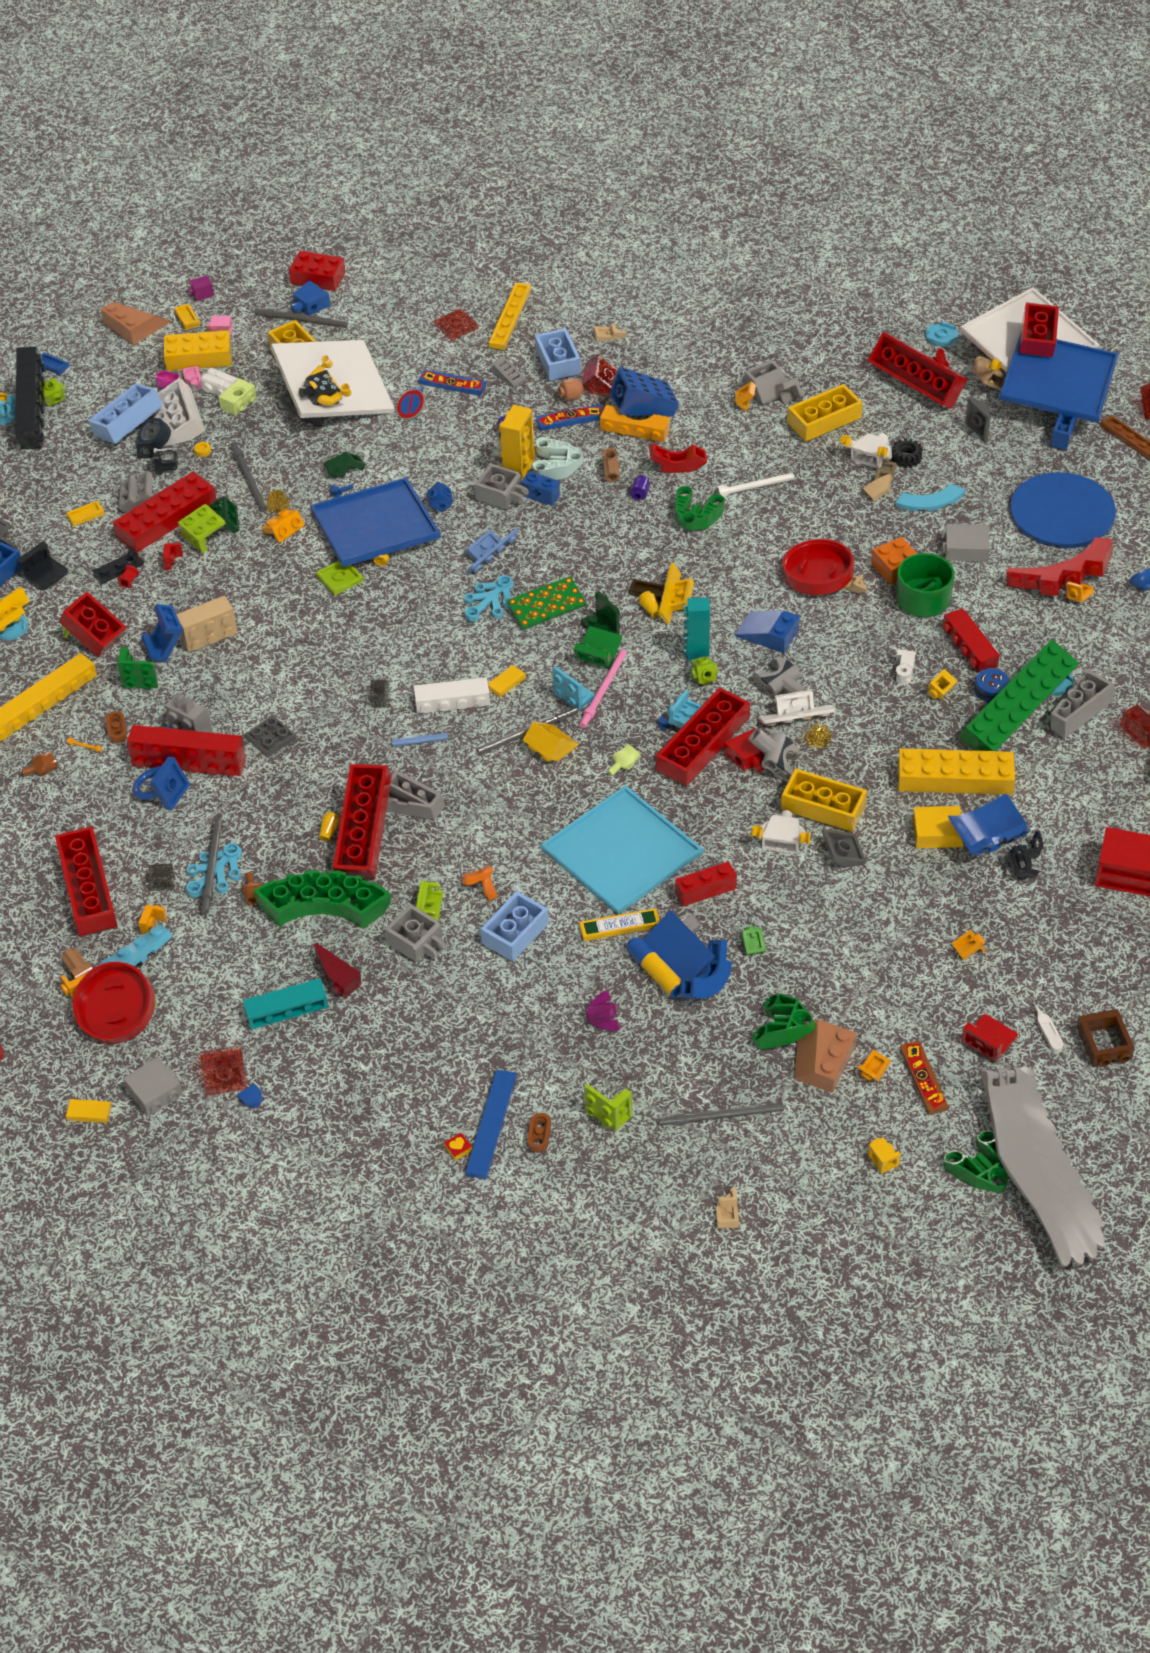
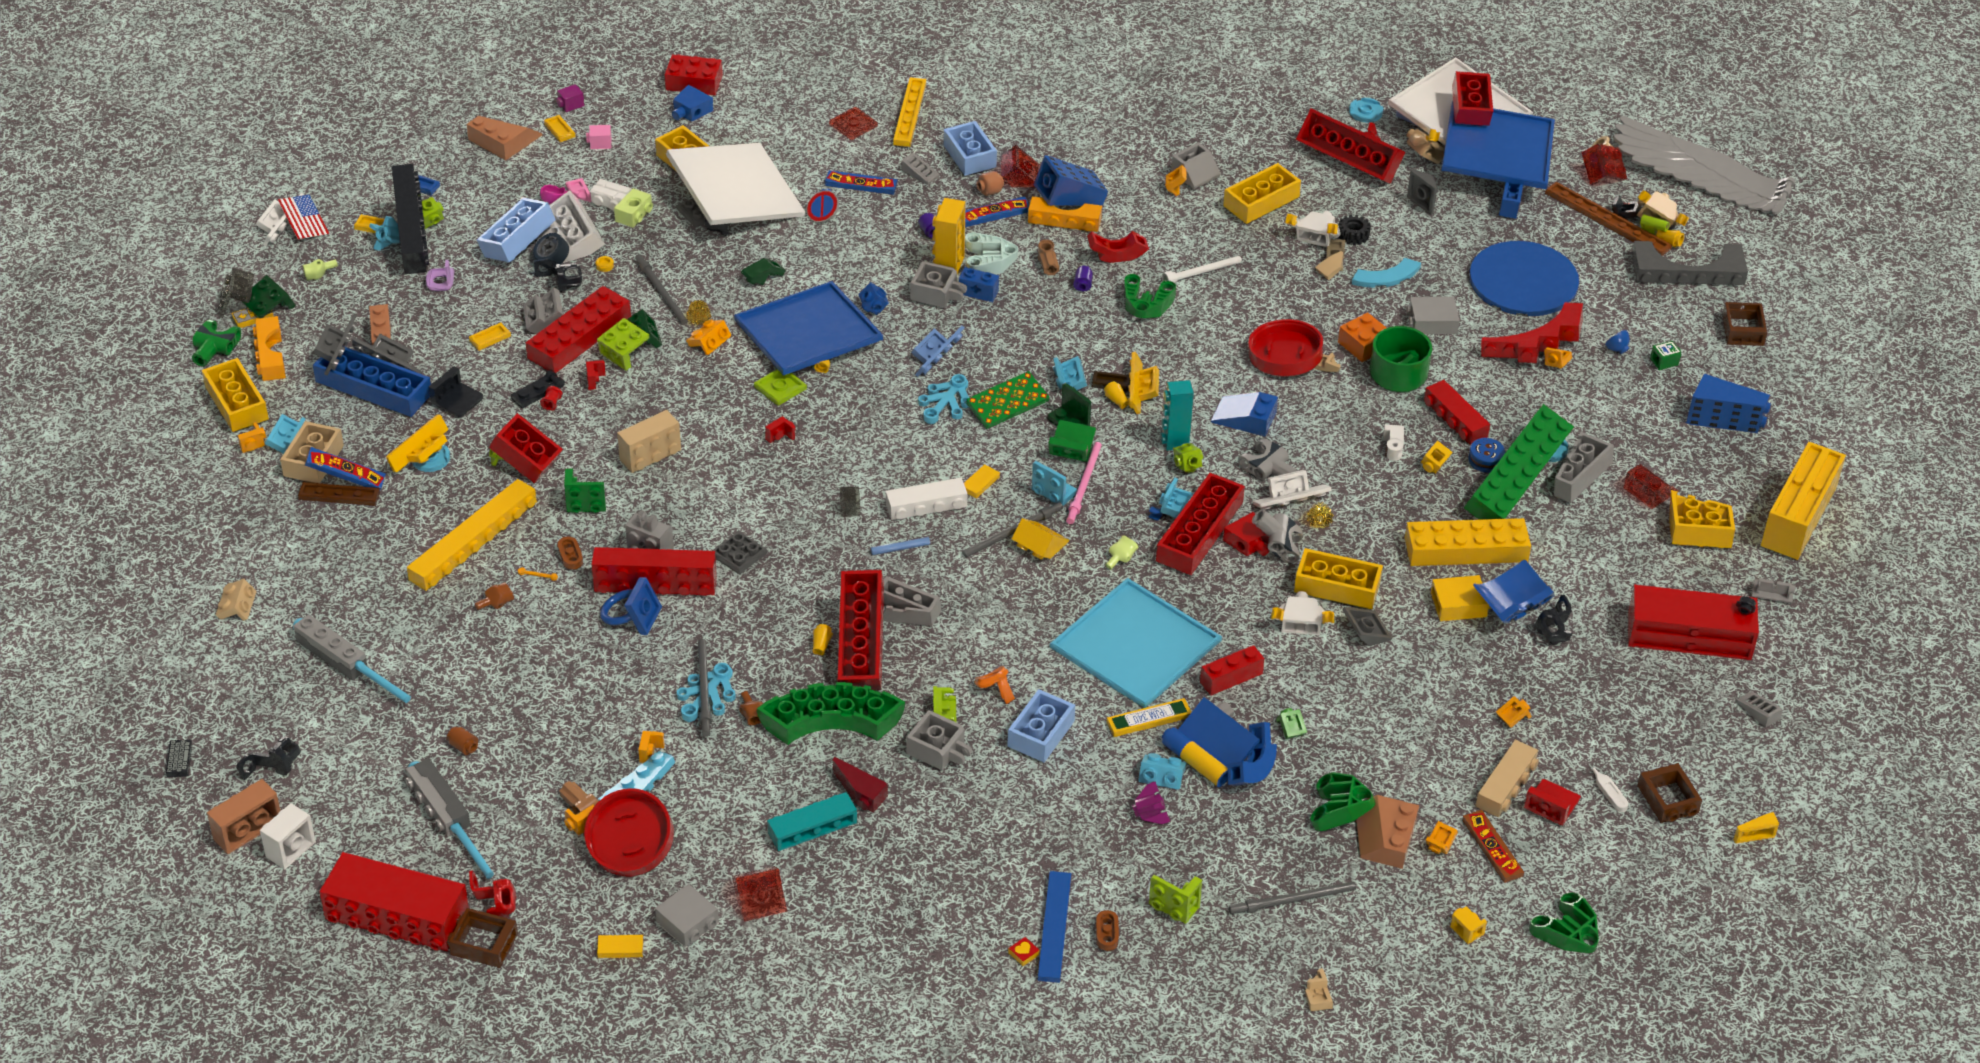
camera: 10 degrees left, 5 degrees down
(59, 453) = (445, 272): none -> lavender piece
(86, 881) = (571, 711): red brick -> none
(160, 877) = (650, 703): clear smoke brick -> none
(165, 634) = (606, 454): blue panel -> none
(197, 349) = (580, 160): yellow brick -> none
(251, 1096) = (793, 918): blue tile -> none
(271, 313) = (651, 120): dark grey bar -> none
(321, 386) = (730, 192): torso -> none
(329, 618) = (778, 429): none -> red bracket
(337, 492) = (760, 299): blue hand -> none
(608, 333) = (1015, 125): tan slope -> none
(609, 581) = (1070, 372): none -> medium azure bracket
(621, 978) = (1164, 771): none -> medium azure bracket
(789, 390) = (1220, 172): light grey panel -> none
(949, 1011) = (1507, 778): none -> tan brick
(1040, 1166) = (1628, 922): light grey animal -> none

